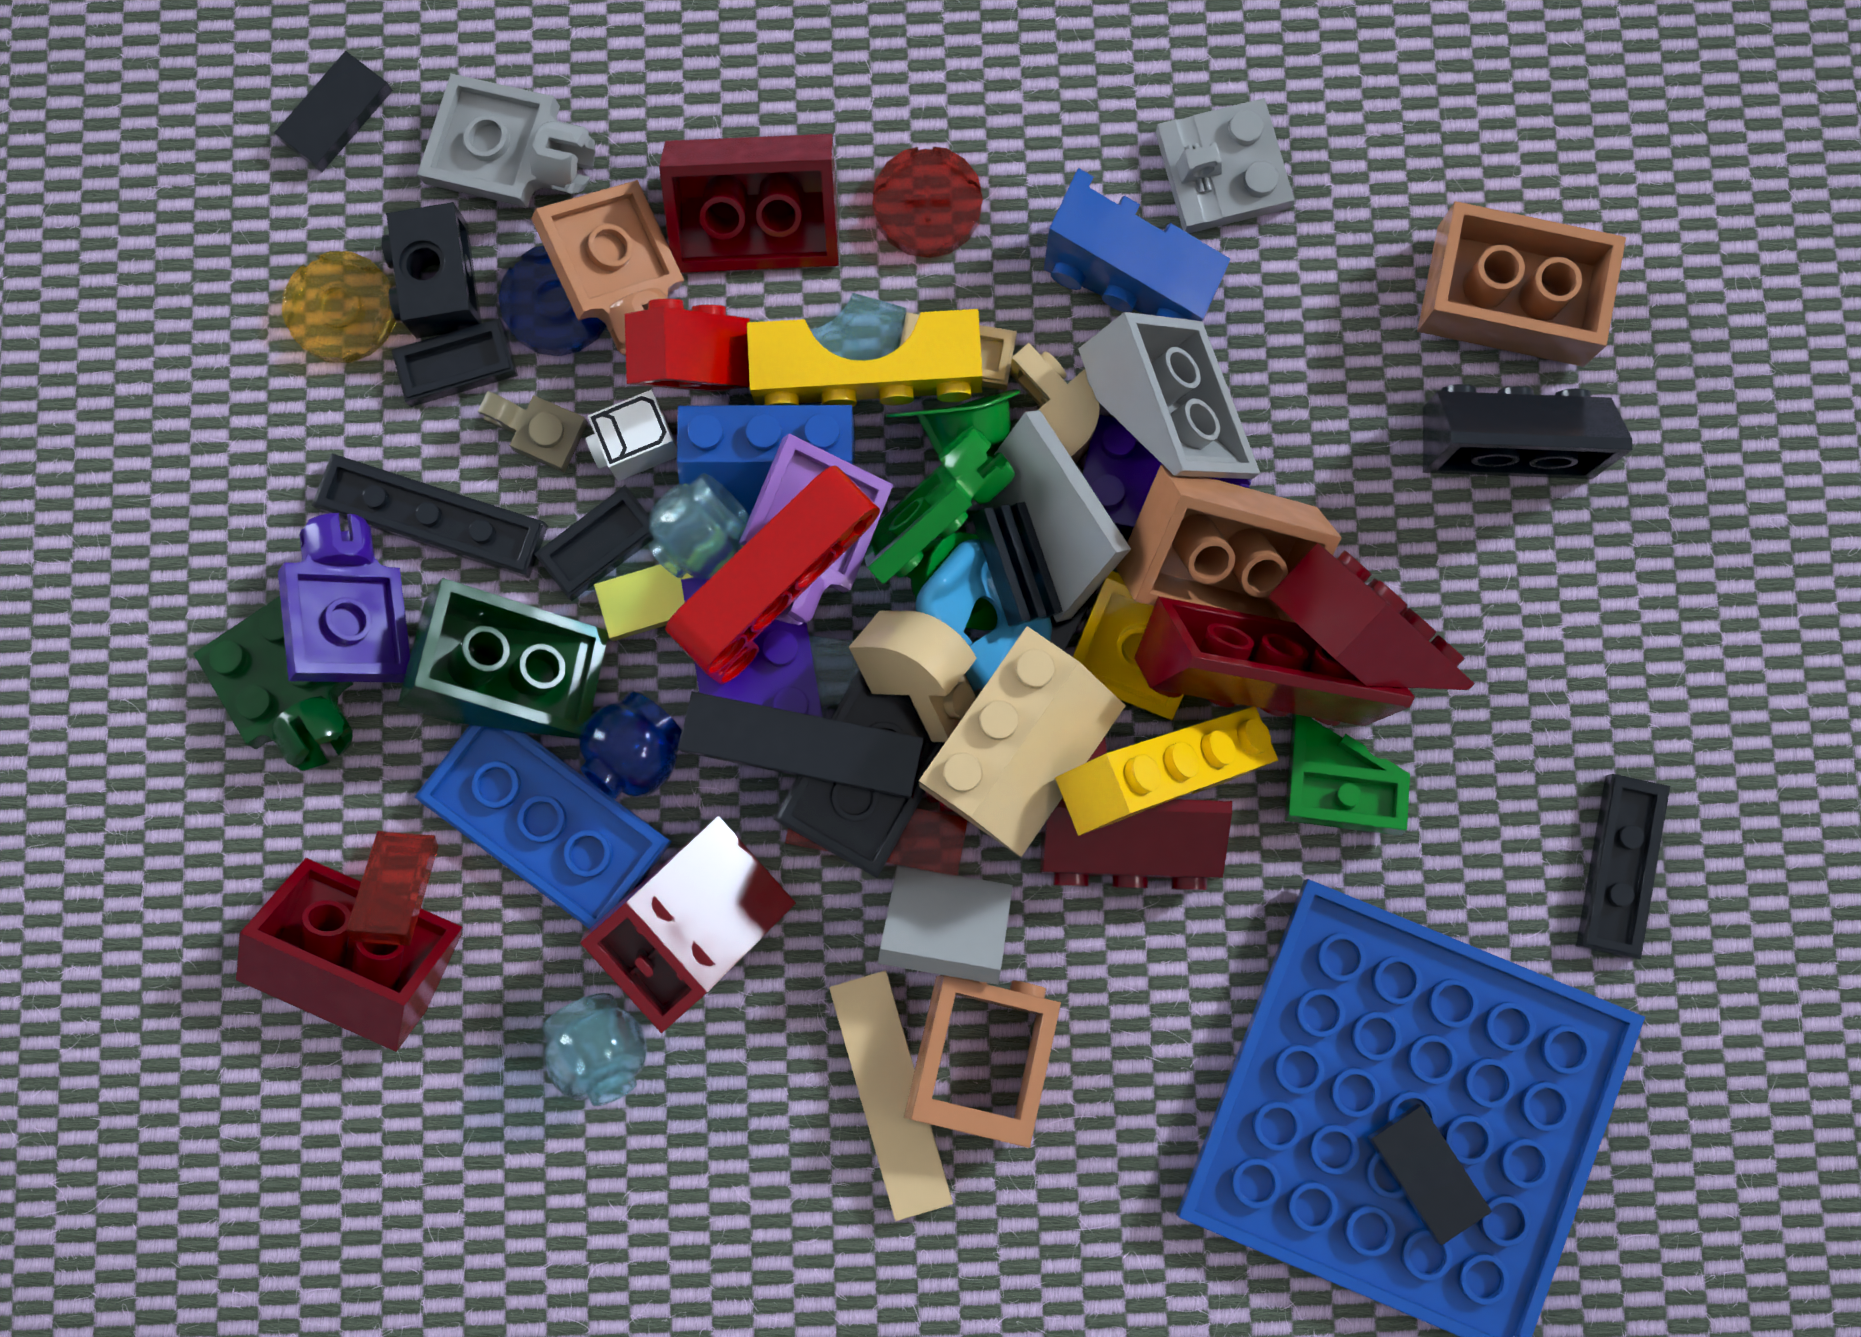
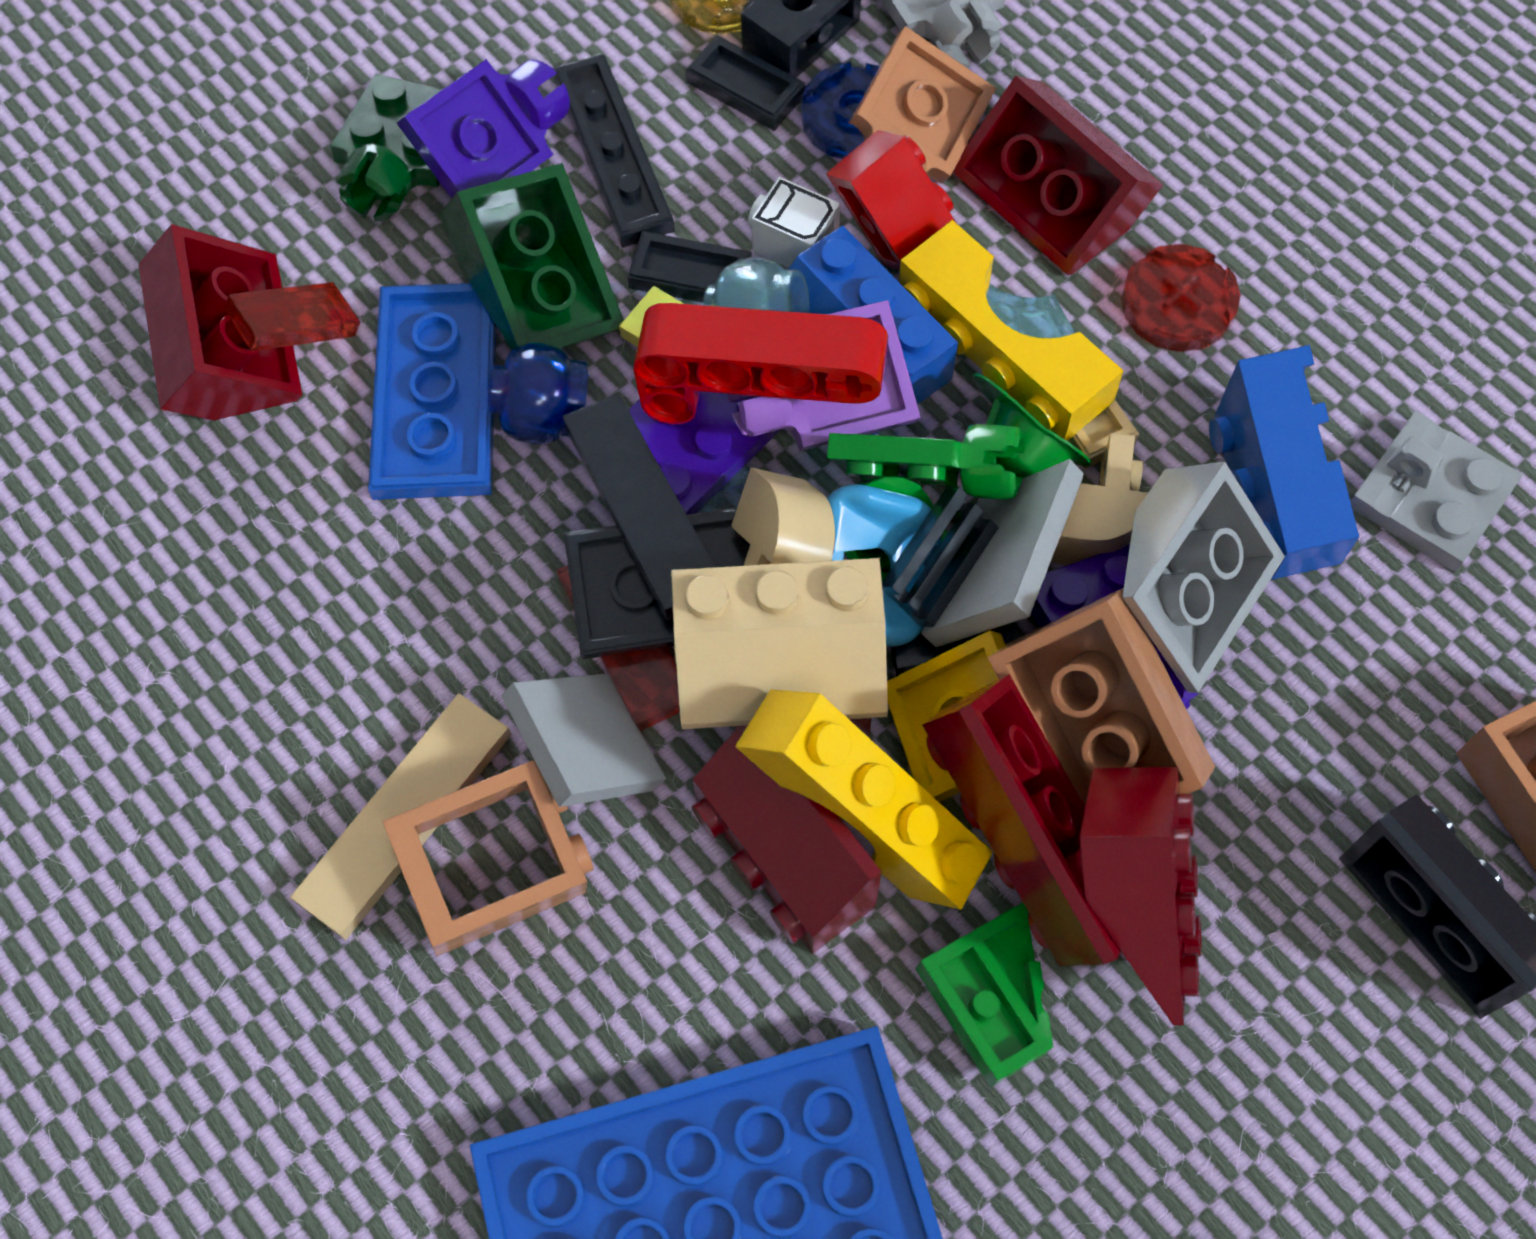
camera: 50 degrees right, 15 degrees down
(541, 431) = (742, 169): dark tan plate -> none
(594, 1049) = (266, 544): clear light blue piece -> none
(687, 924) = (424, 538): slope -> none

